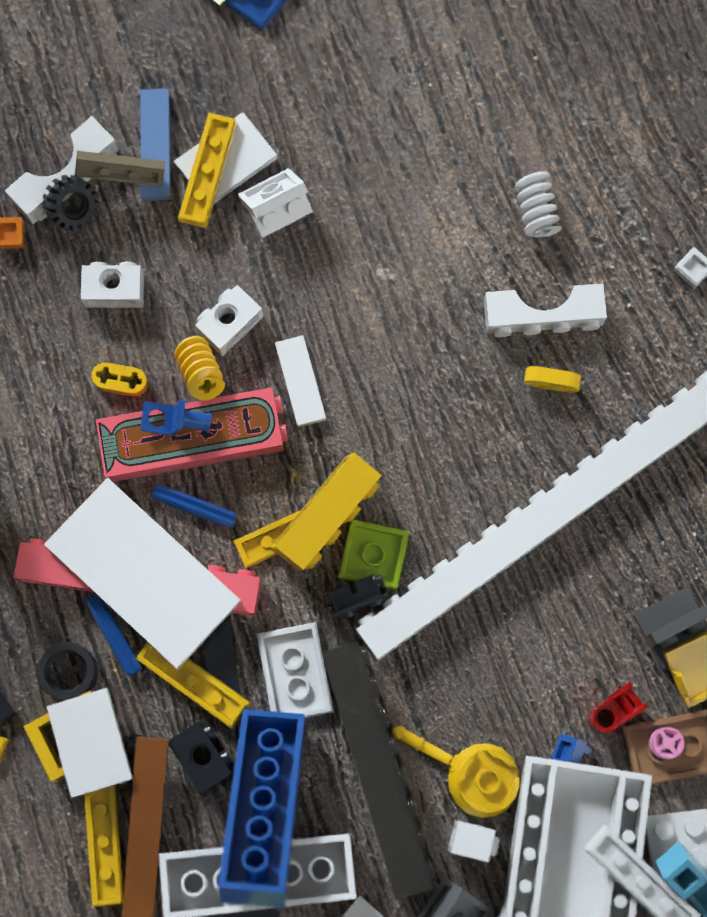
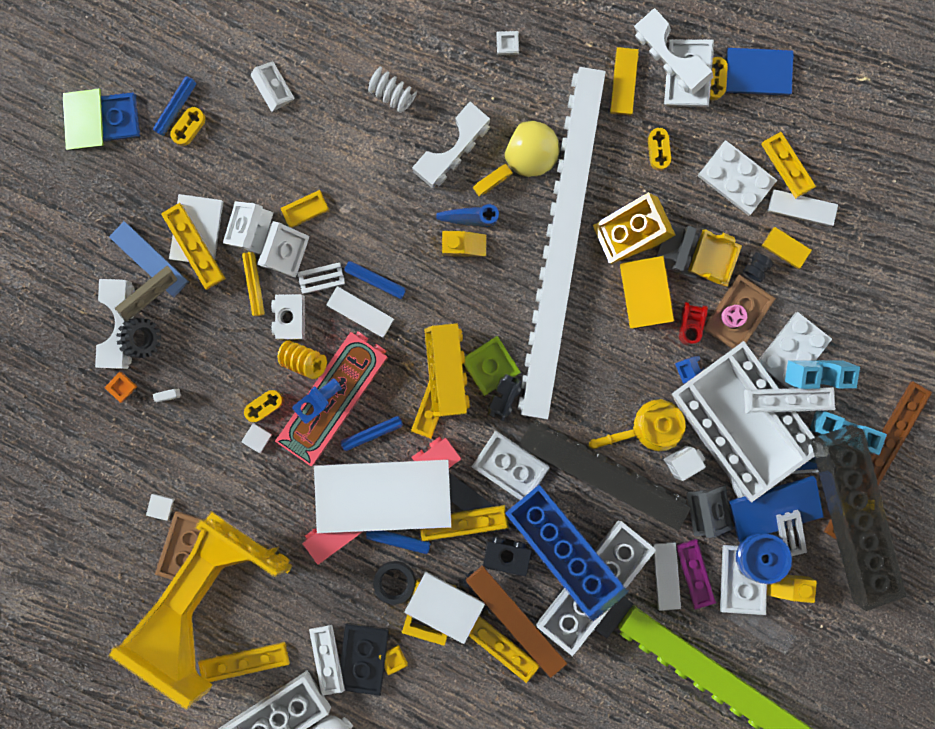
camera: 50 degrees left, 10 degrees up
(41, 281) = (167, 395): none -> white tile
(82, 403) = (256, 438): none -> white tile
(126, 295) = (220, 357): white brick -> none
(227, 258) = (253, 284): none -> yellow axle
(275, 301) = (304, 290): none -> white tile
(287, 252) = (283, 249): none -> white bracket
(314, 61) = (184, 122): none -> yellow beam
(320, 32) = (174, 106): none -> blue axle
(345, 237) = (305, 209): none -> yellow tile
(345, 365) = (375, 280): none -> blue axle
(429, 98) = (272, 86): none -> white slope
(463, 411) = (463, 244): none -> yellow slope
(498, 394) = (470, 216): none -> blue piece
(600, 634) = (647, 292): none -> yellow tile
(621, 388) = (532, 149): none -> light yellow cylinder
(648, 558) = (634, 228): none -> yellow slope

